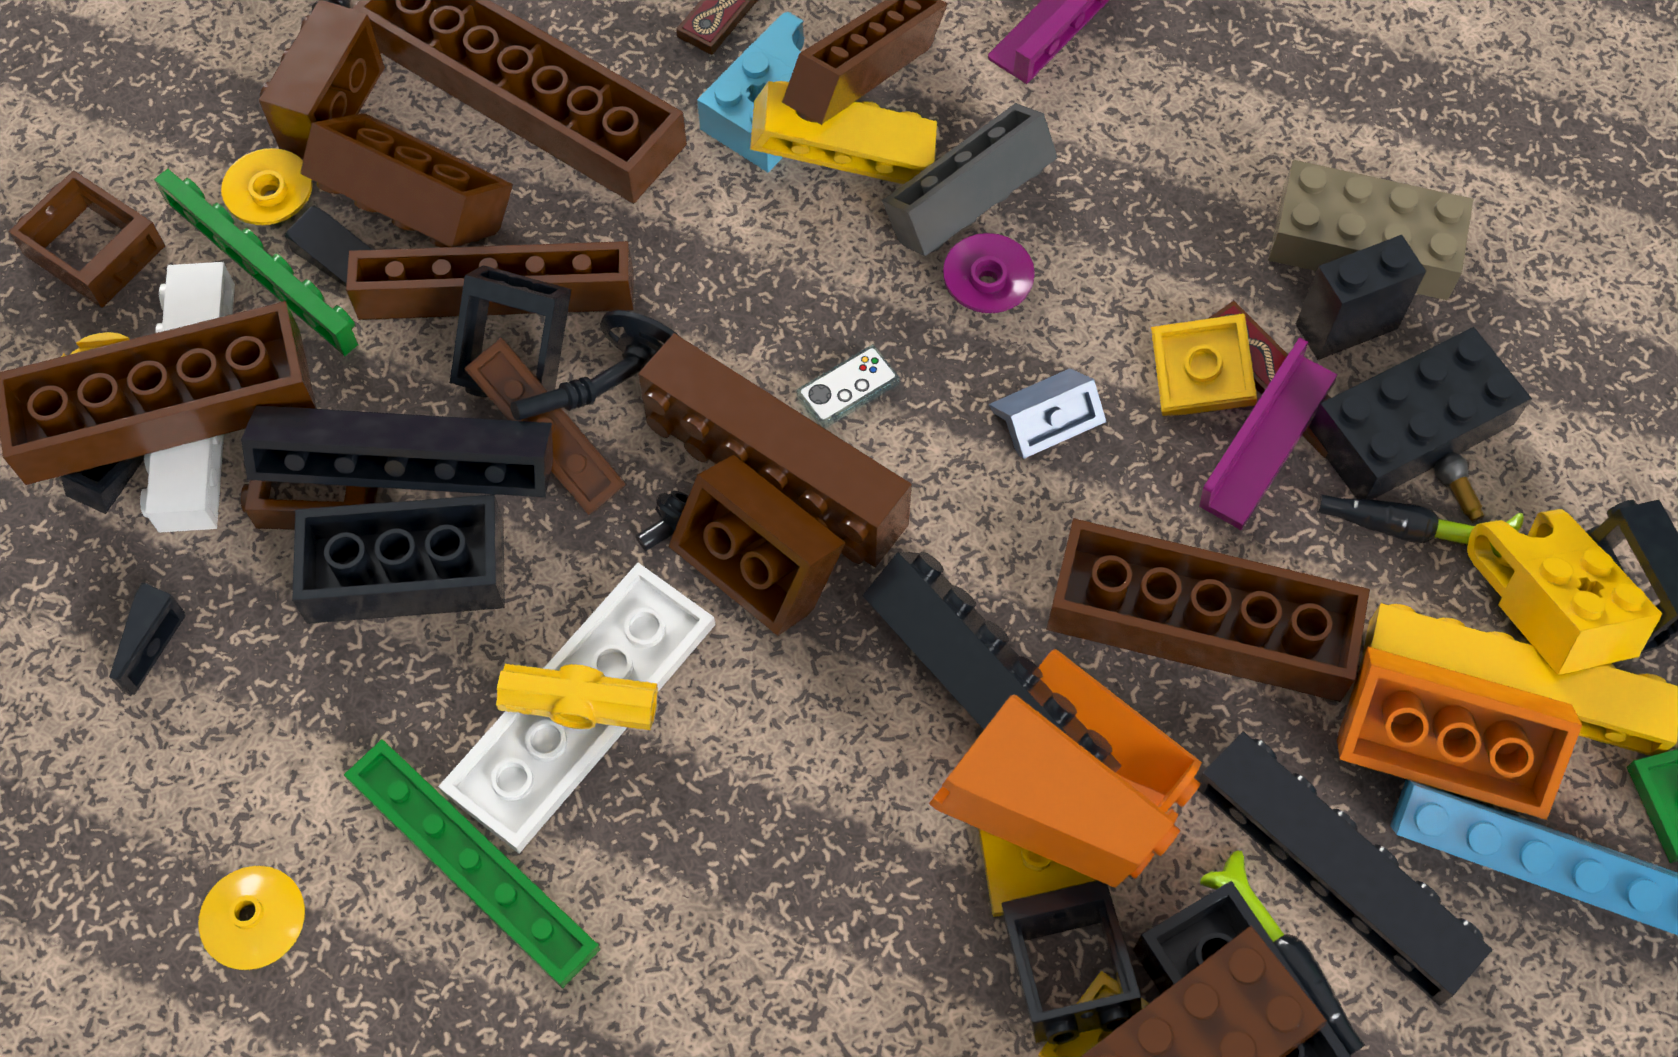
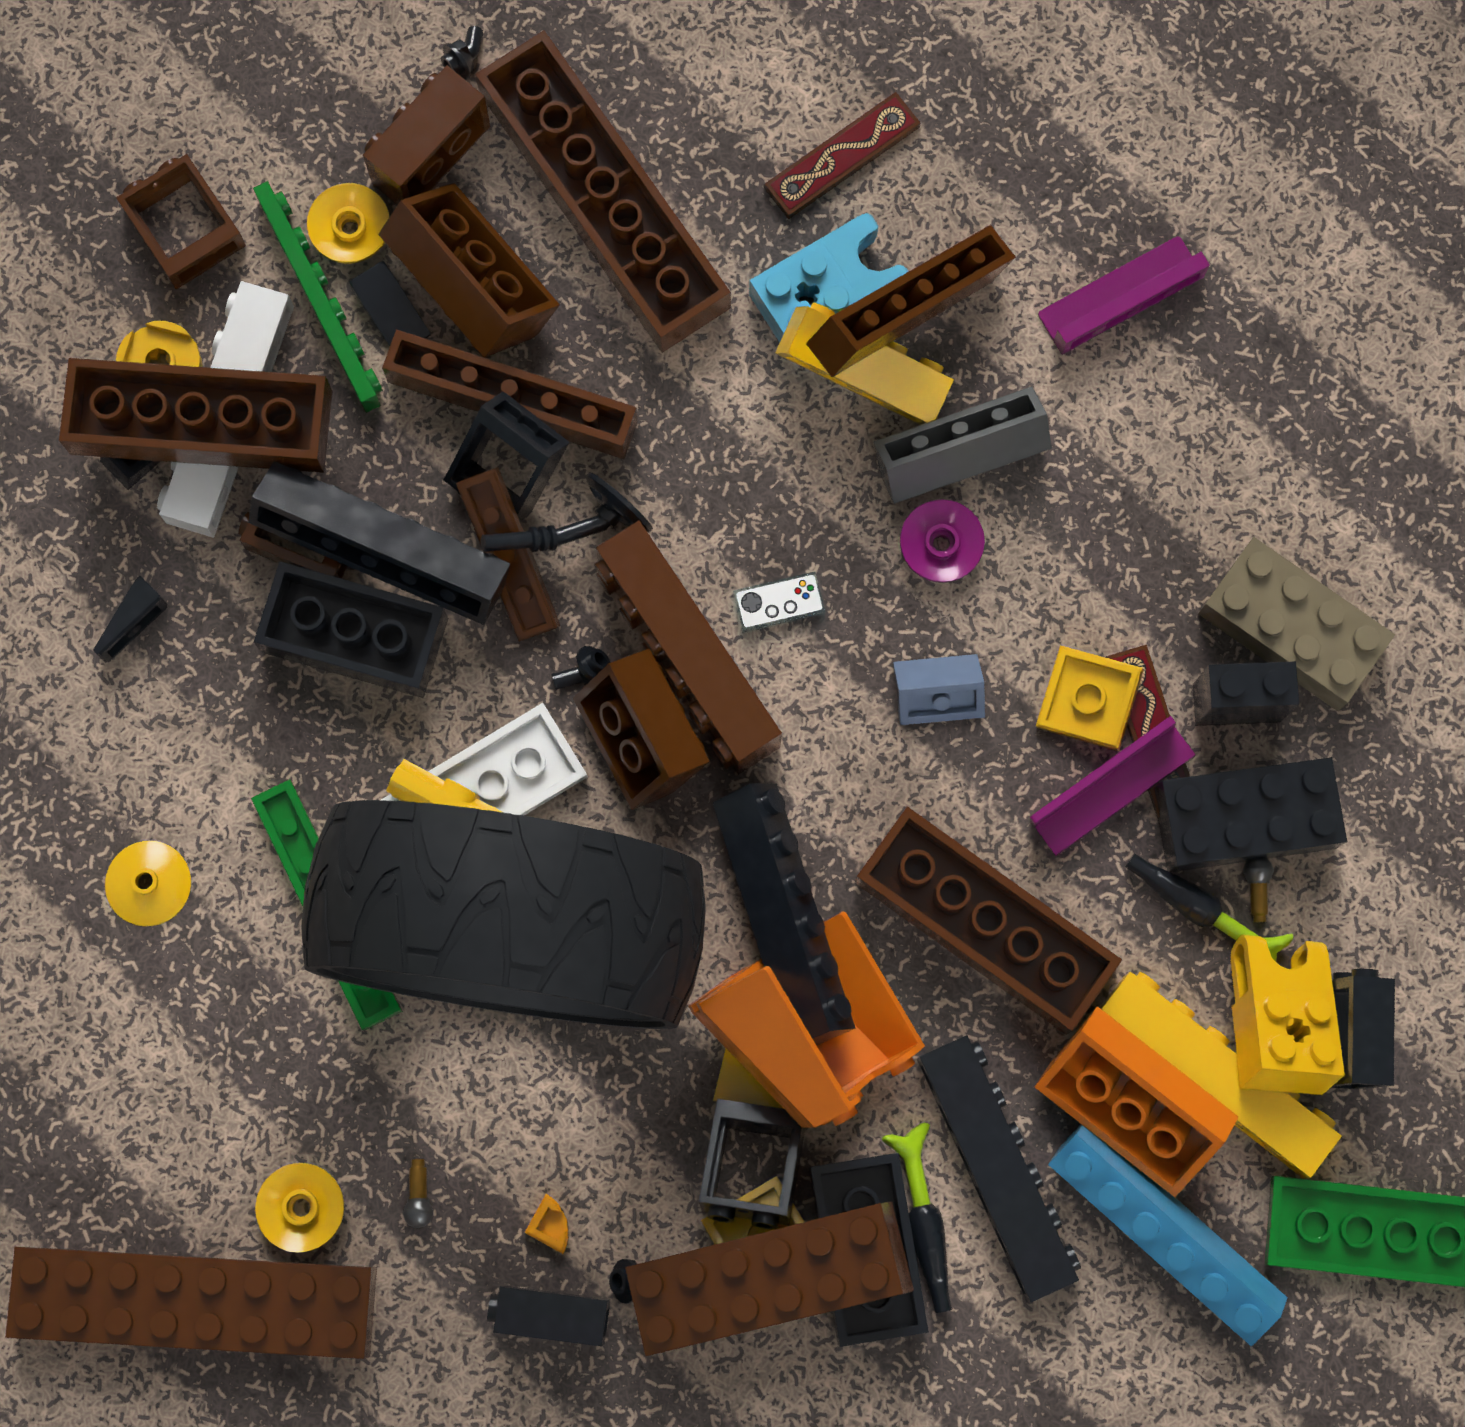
camera: 20 degrees right, 15 degrees up
(683, 739) = (504, 913): none -> black tyre

